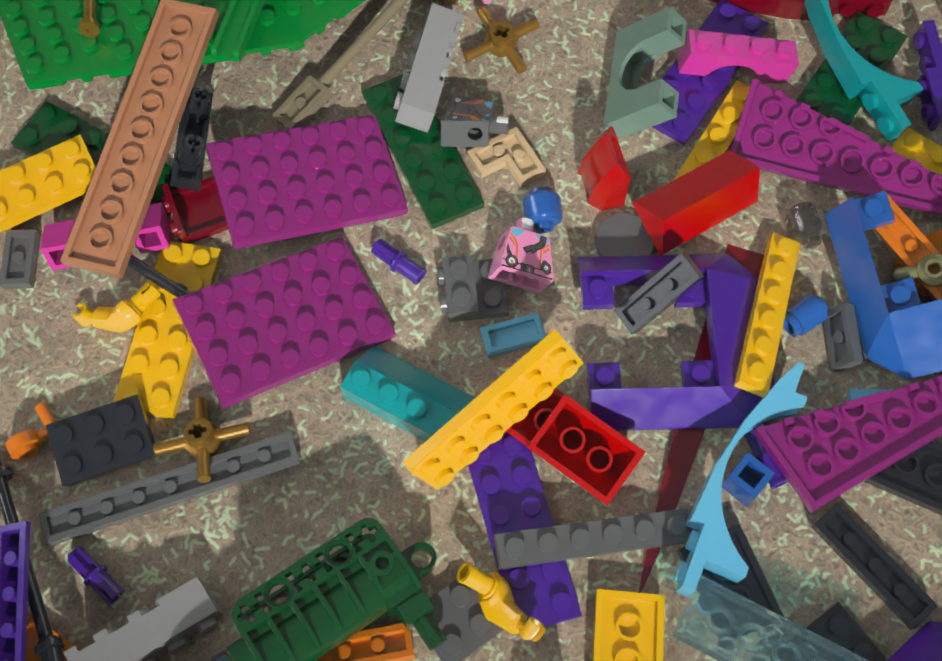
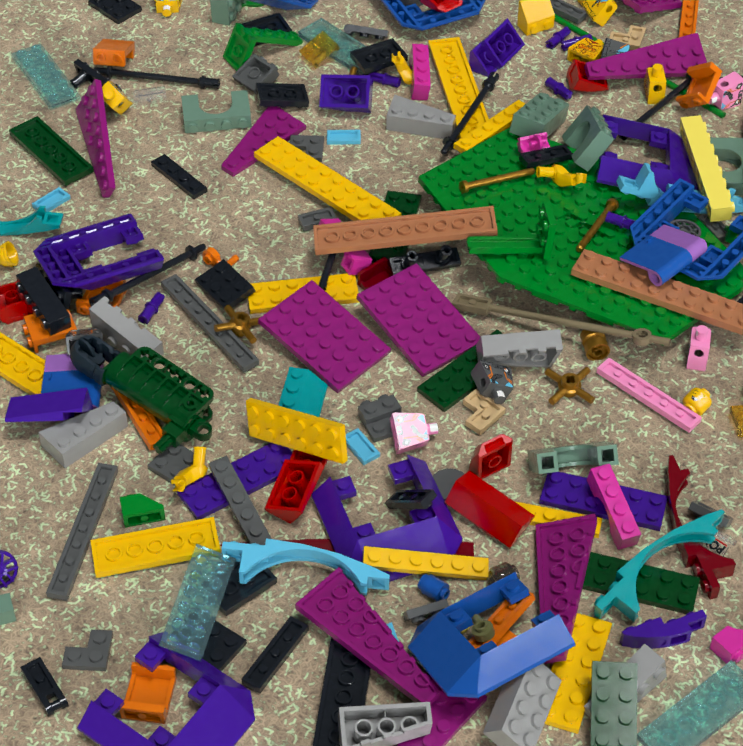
camera: 70 degrees right, 20 degrees down
(122, 316) = (299, 268): yellow arm -> none
(398, 261) = (386, 379): dark purple axle -> none
(543, 208) = (450, 435): blue head -> none
(747, 479) = (305, 573): blue brick -> none

